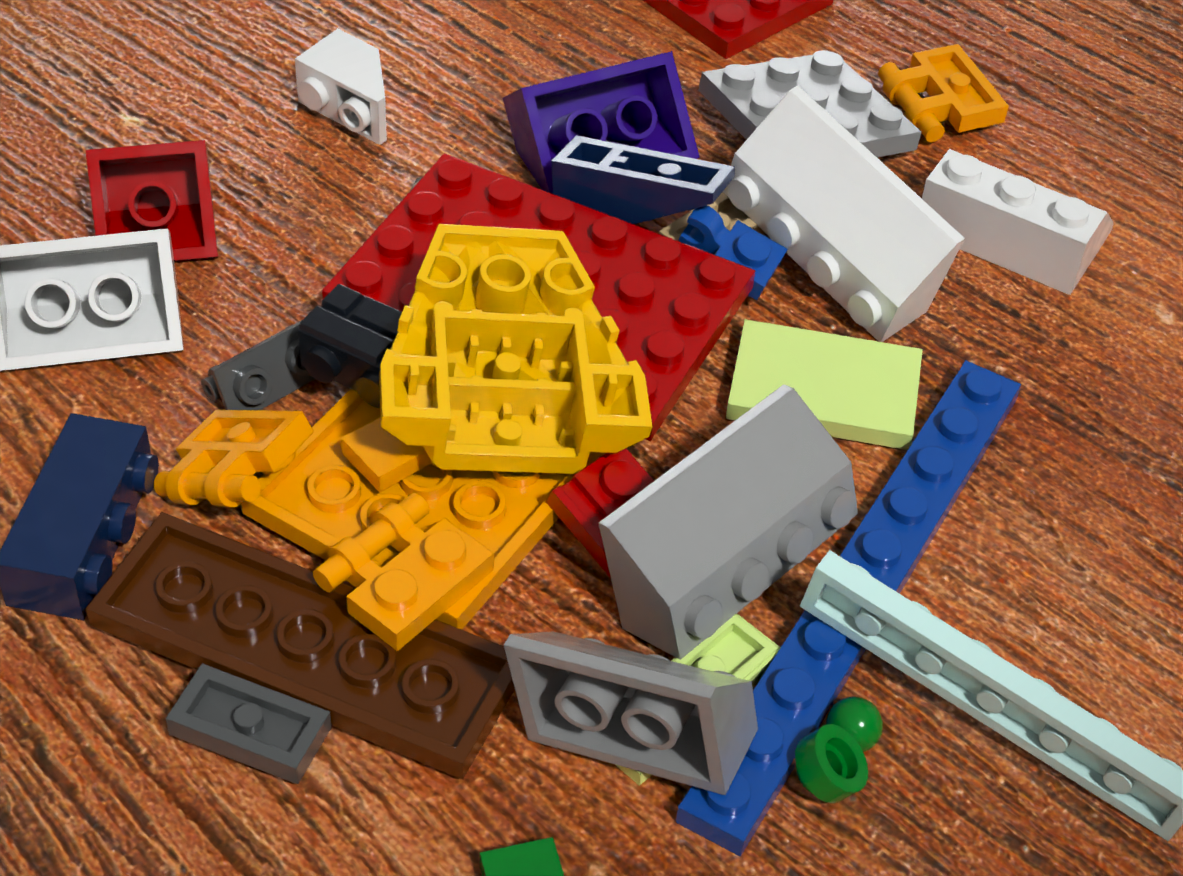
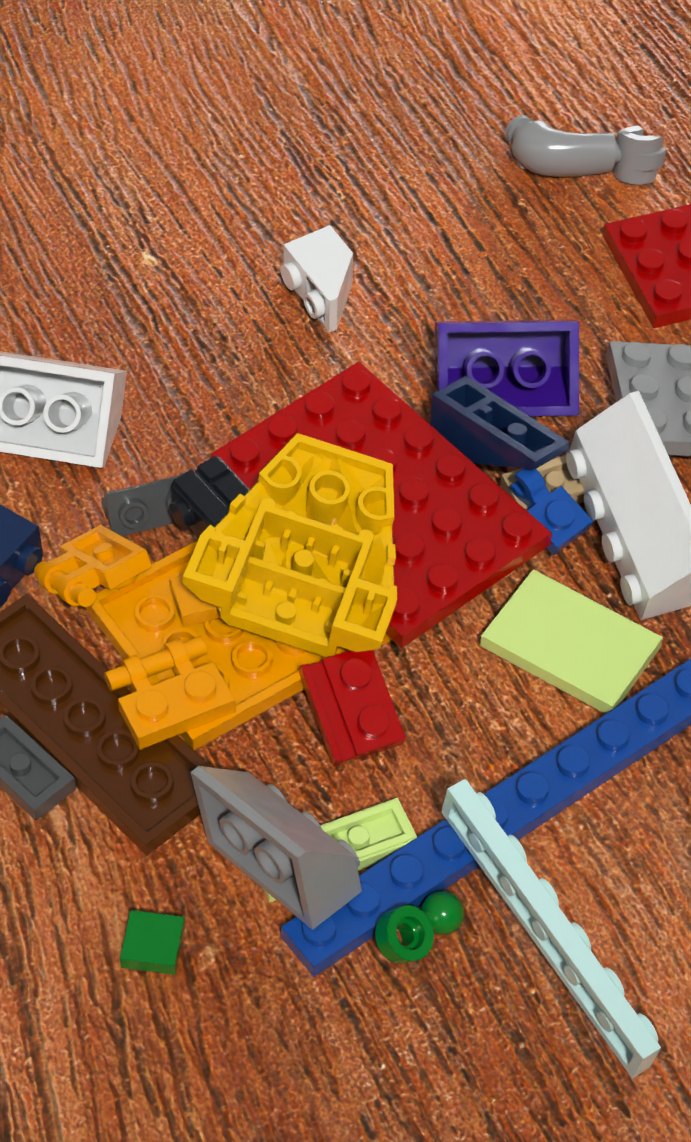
camera: 25 degrees right, 5 degrees up
(153, 191) = (130, 336): red slope -> none
(726, 523) = (418, 730): light grey slope -> none

